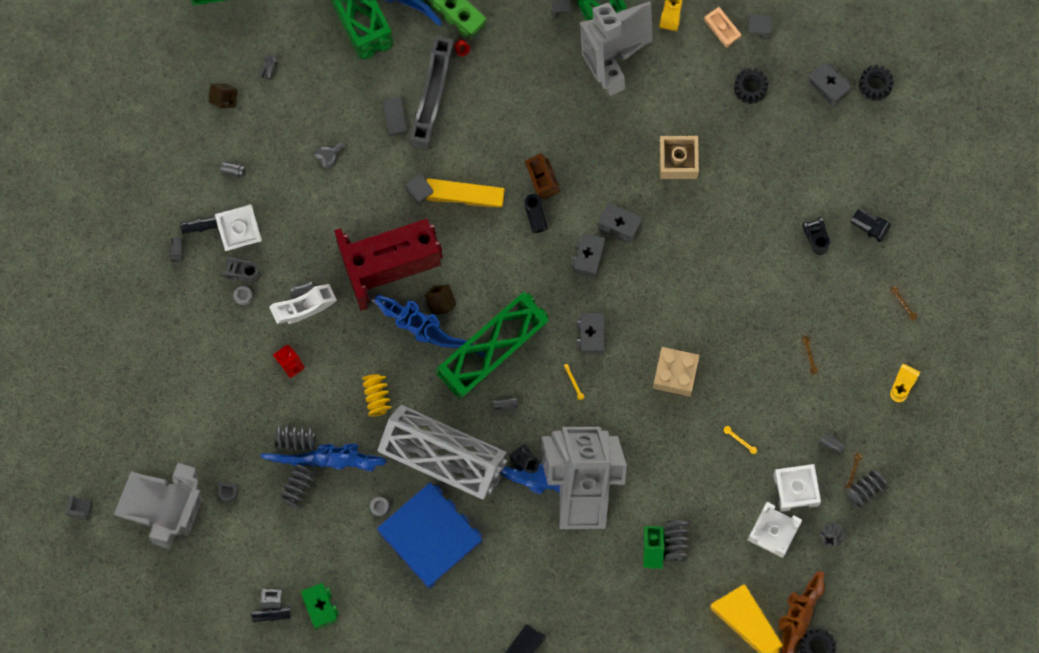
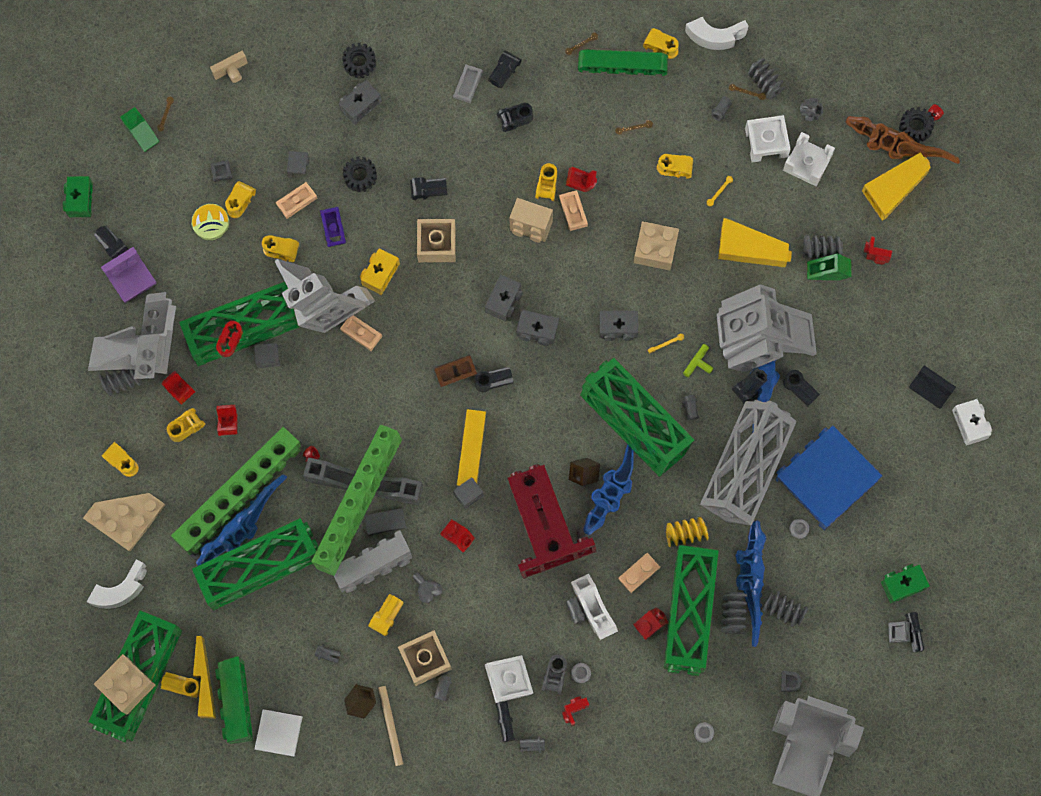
camera: 90 degrees left, 0 degrees up
(181, 408) = (704, 732): none -> light grey tile
(197, 26) = (278, 733): none -> white tile
(200, 124) = (390, 726): none -> tan bar
(212, 289) = (576, 705): none -> red bracket
(259, 150) = (425, 658): none -> tan brick
(285, 378) = (684, 660): none -> green piece
(301, 116) = (385, 617): none -> yellow piece
(338, 351) = (639, 573): none -> light nougat plate
(353, 102) = (373, 562): none -> light grey wedge
(378, 181) = (457, 535): none -> red bracket
(411, 84) = (356, 500): none -> bright green brick
(523, 514) = (802, 389): none -> black piece
(554, 412) = (697, 361): none -> lime piece
(583, 90) = (361, 332): none -> light nougat plate
(653, 113) = (378, 281): none -> yellow brick
(667, 599) = (879, 255): none -> red bracket
(678, 463) = (751, 246): none -> yellow slope
(697, 62) = (332, 226): none -> dark purple slope
(700, 246) = (531, 220): none -> tan brick
(715, 291) = (573, 210): none -> light nougat plate
(737, 151) = (427, 188): none -> black piece
(742, 265) = (547, 185): none -> yellow piece
(748, 299) = (581, 179): none -> red bracket
(765, 396) = (676, 164): none -> yellow piece
(854, 189) = (468, 83): none -> light grey tile
(882, 343) = (623, 61): none -> green beam
(911, 438) = (715, 38): none -> white arch

